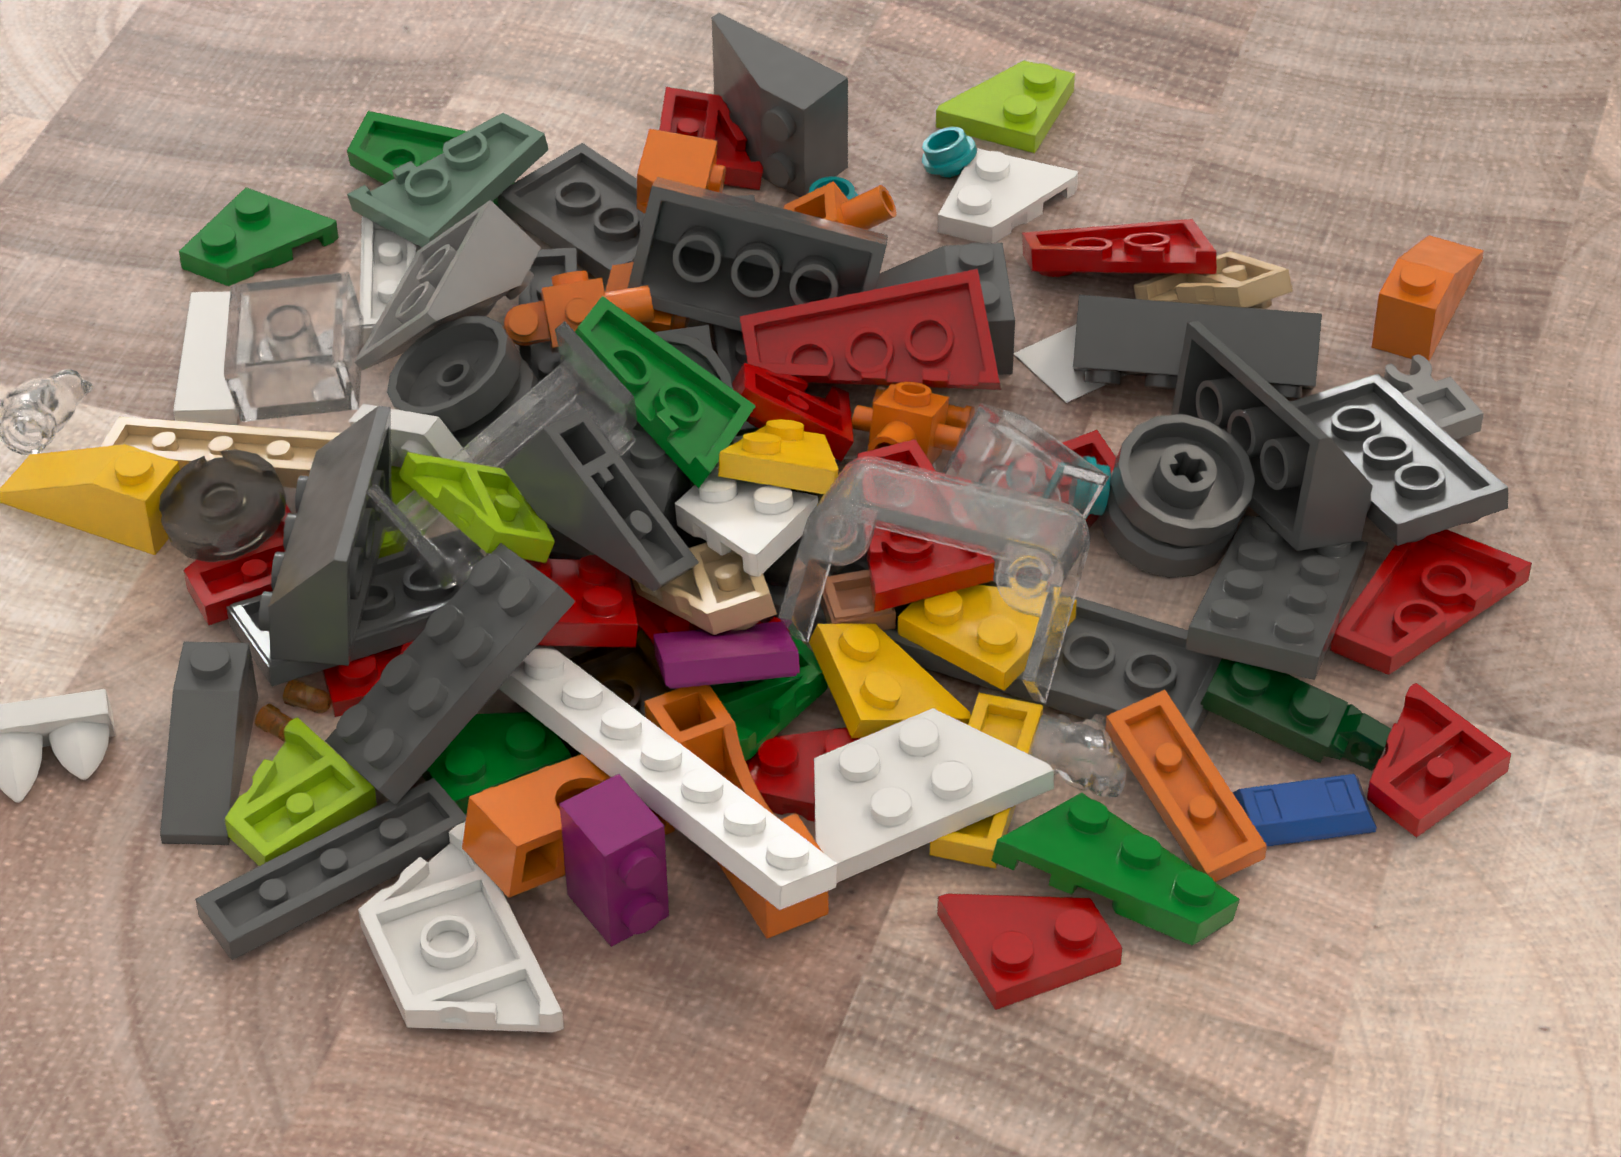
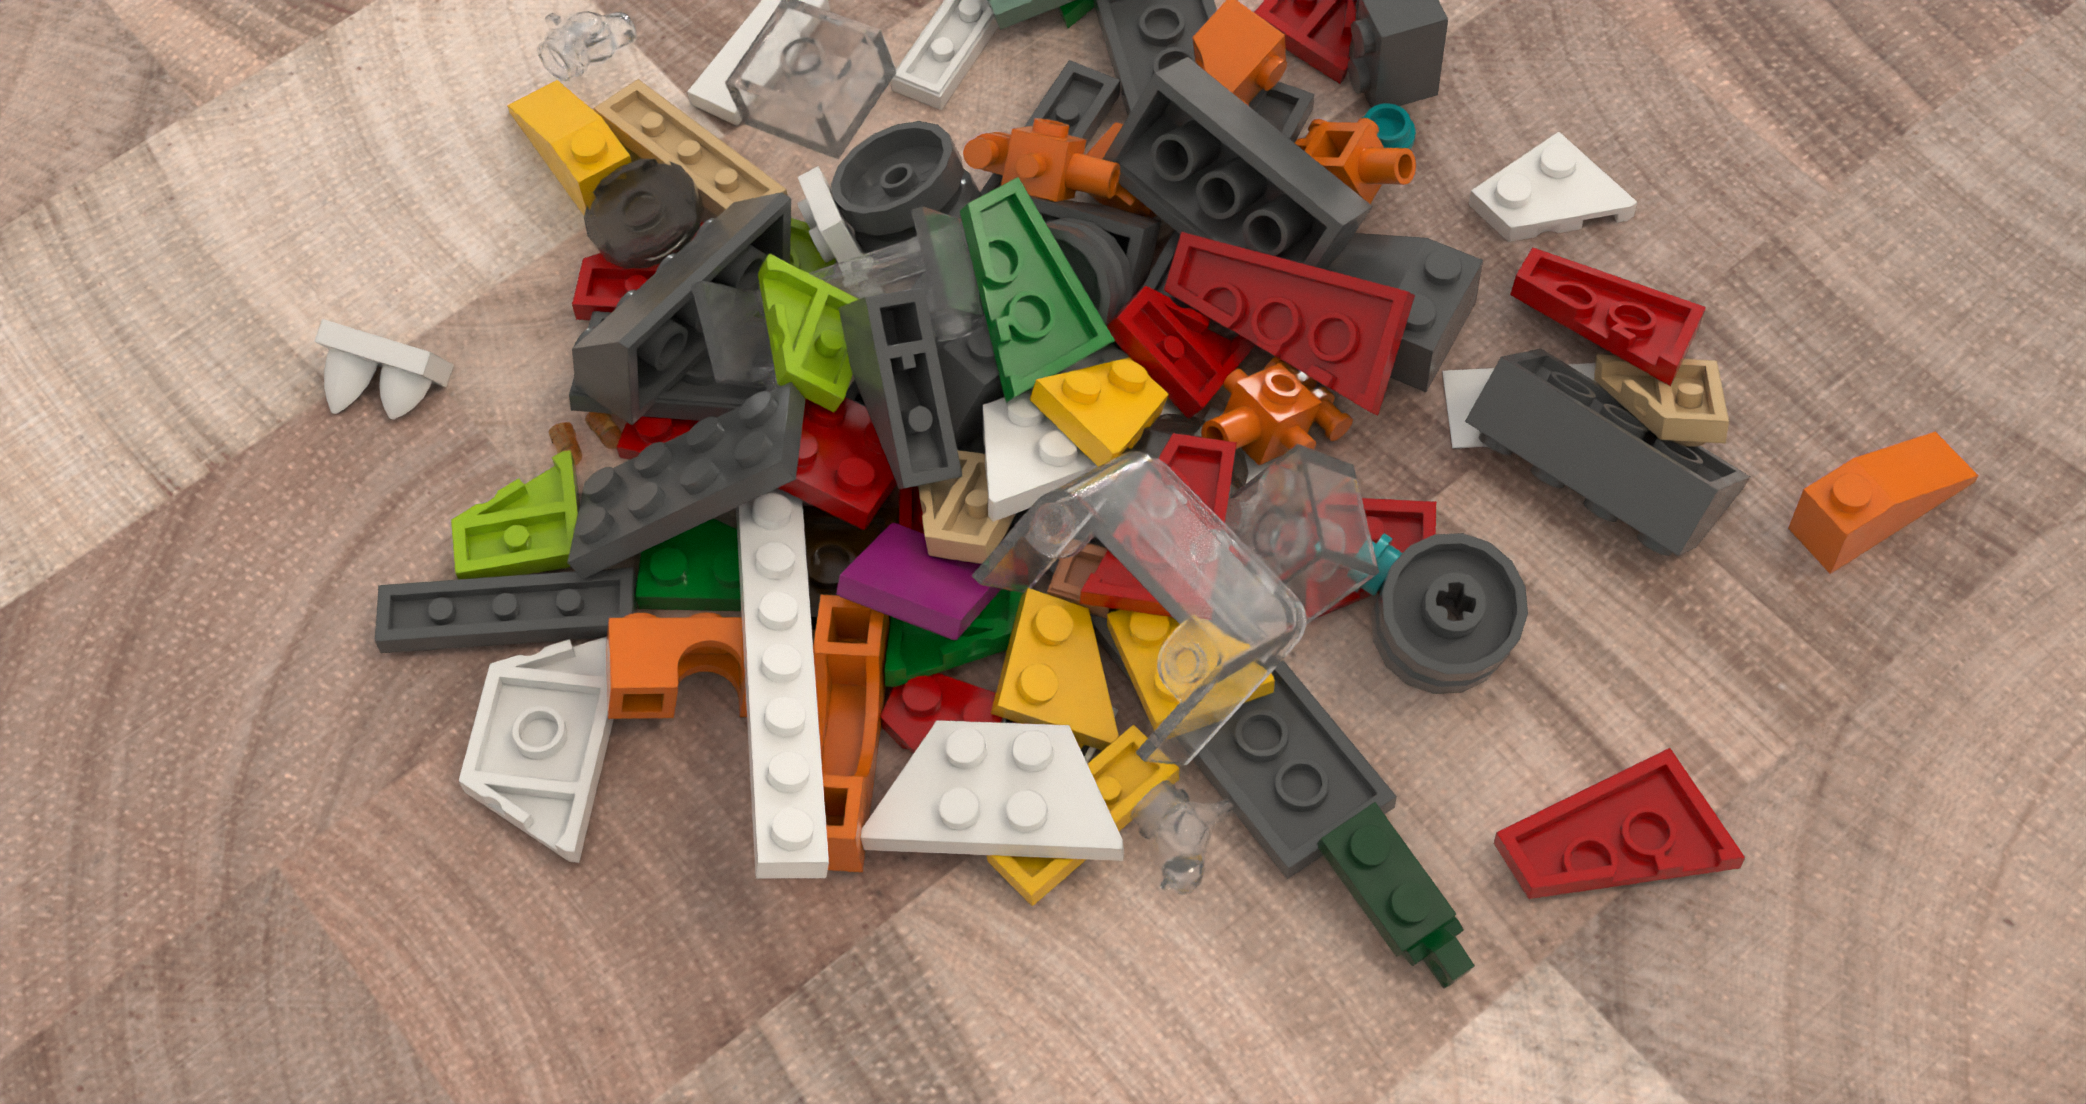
camera: 35 degrees right, 15 degrees up
(207, 741) = (493, 433): dark grey slope -> none
(452, 279) = (984, 70): light grey slope -> none
(615, 860) = (700, 735): magenta brick -> none
(948, 152) = (1529, 124): teal plate -> none
(1011, 106) = (1634, 97): lime wing -> none
(1028, 942) = (1006, 996): red wing -> none
(1102, 853) = (1130, 966): green wing -> none
(1185, 787) = (1240, 923): orange plate -> none
(1275, 602) = (1468, 770): dark grey plate -> none
(1300, 474) = (1570, 632): dark grey slope -> none
(1308, 809) = (1343, 999): blue tile -> none
(1416, 469) = (1688, 674): dark grey plate -> none
(1432, 763) = (1490, 1019): red wing -> none
(1439, 400) = (1784, 632): light grey plate -> none

